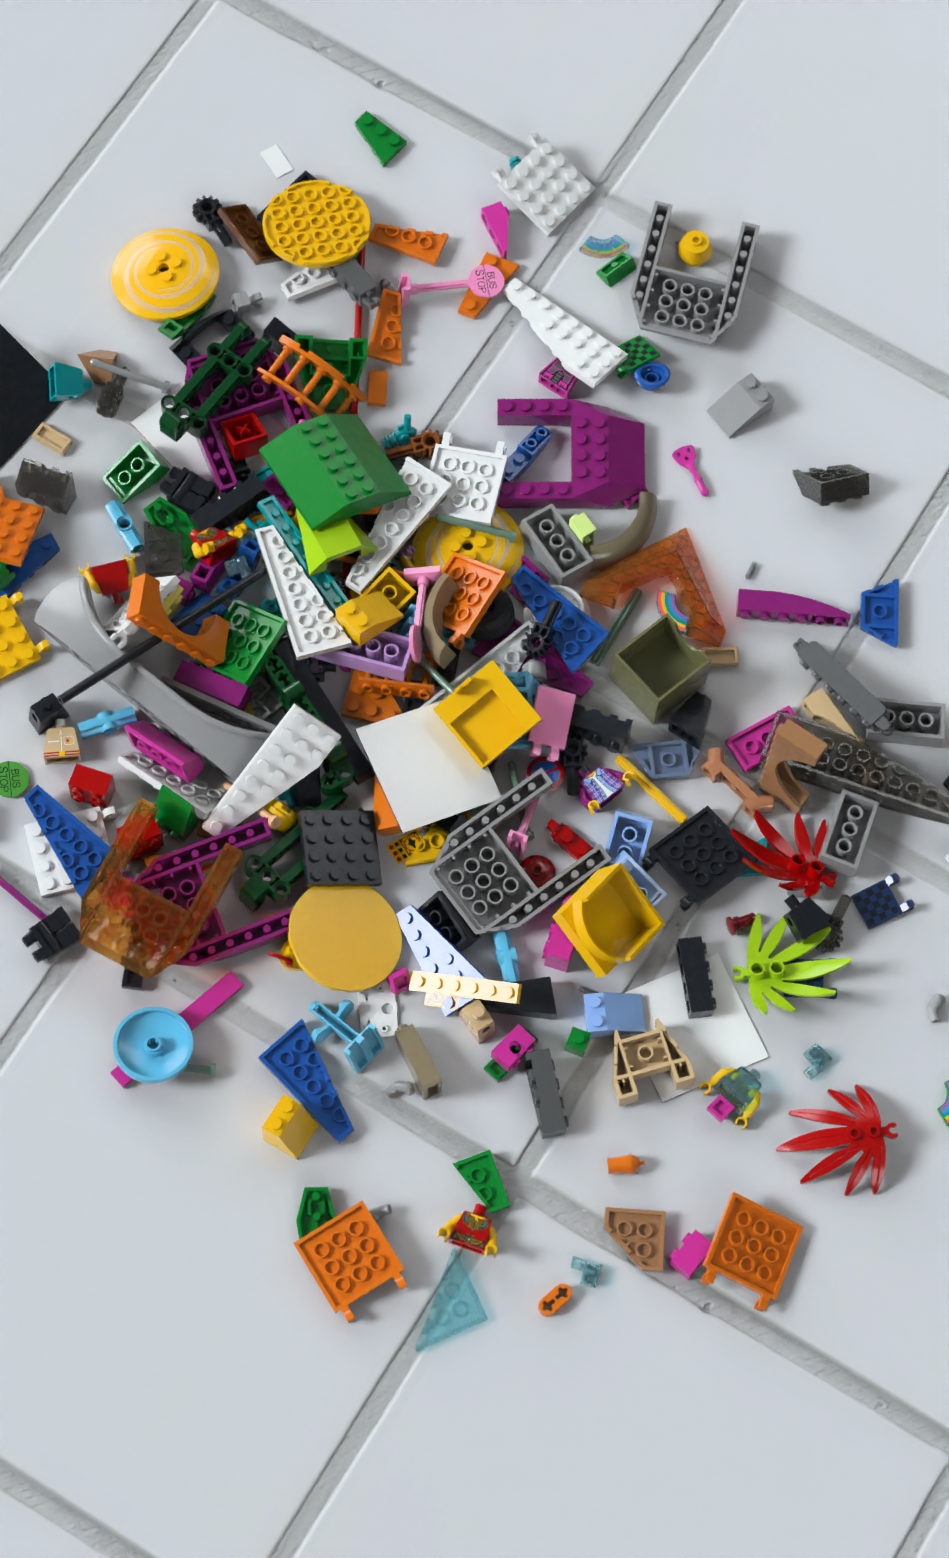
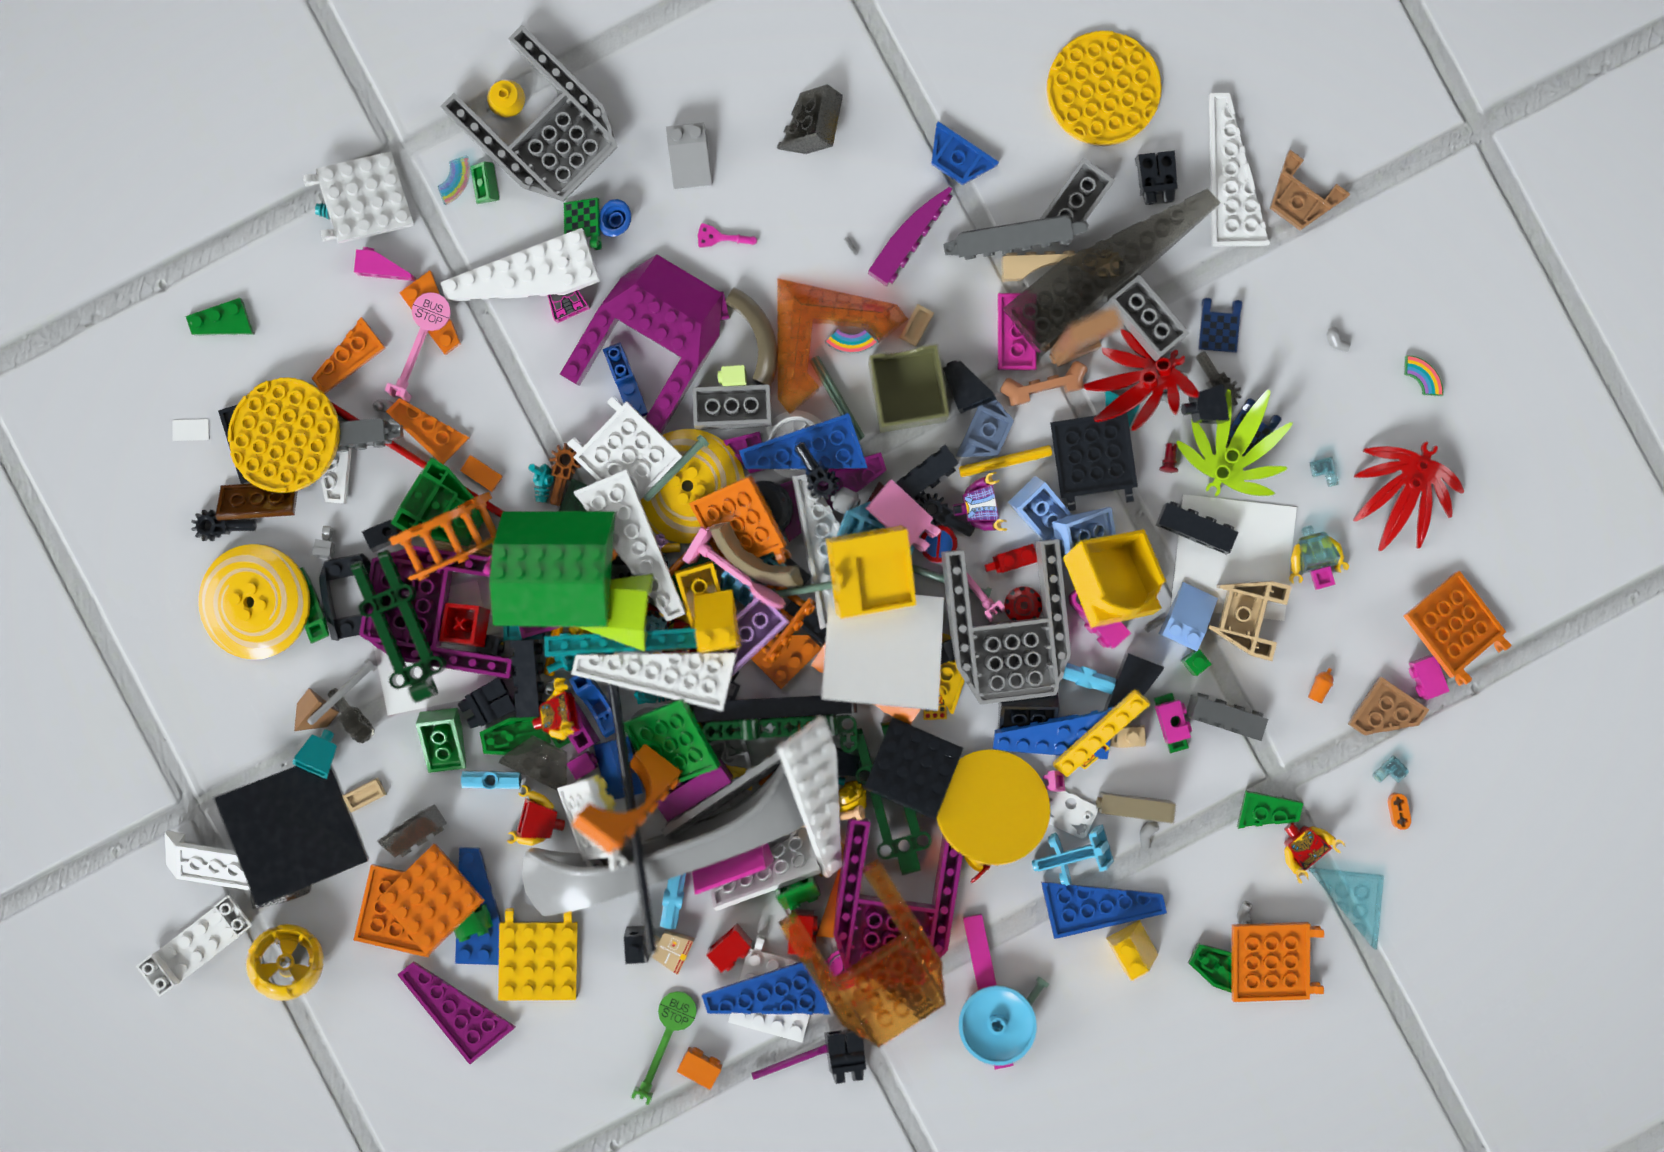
camera: 55 degrees left, 20 degrees up
(238, 565) = (593, 703): clear light blue piece -> none

